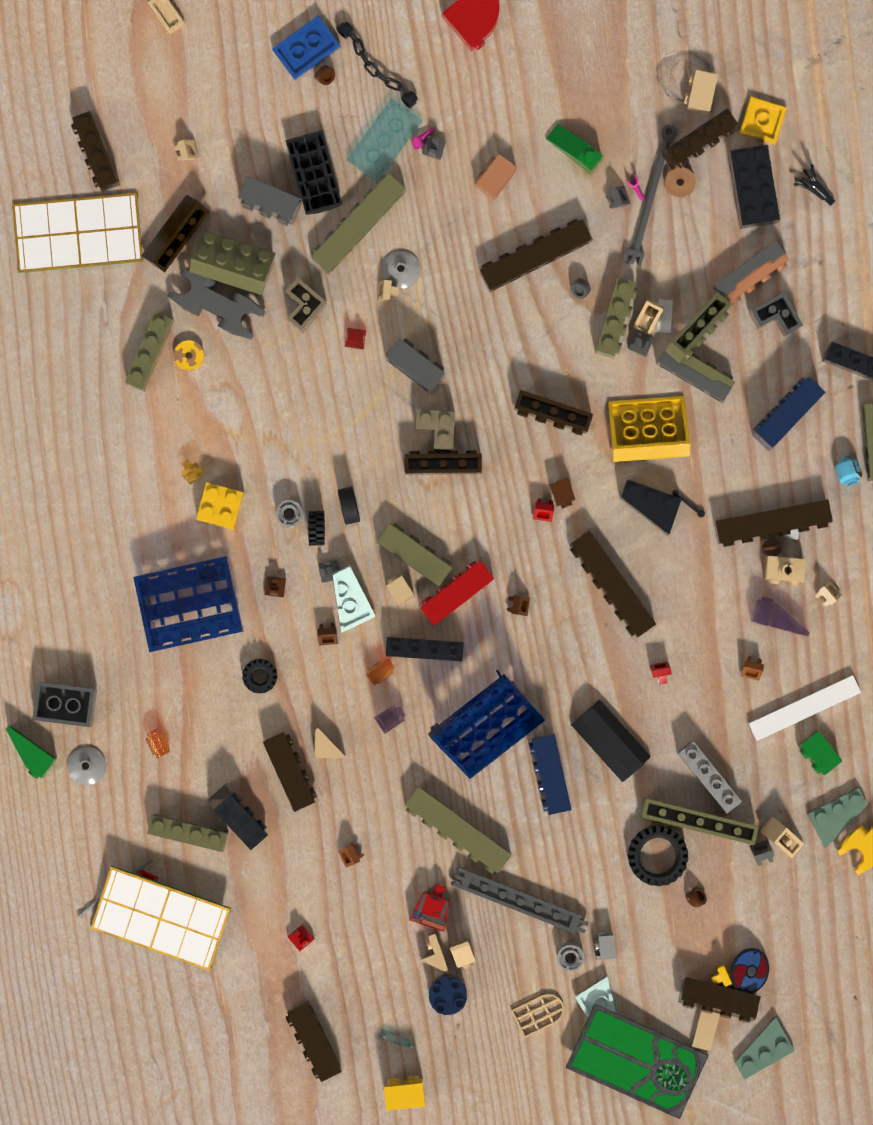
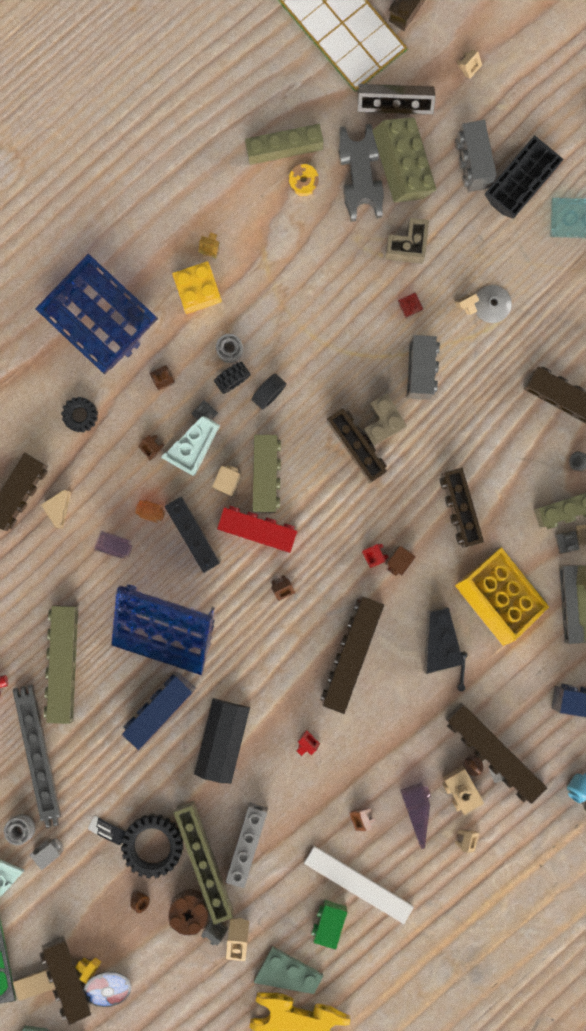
camera: 55 degrees right, 0 degrees up
(358, 224) = (507, 242): olive brick -> none
(620, 886) = (106, 830): none -> sticker
(742, 863) = (188, 923): none -> reddish brown brick

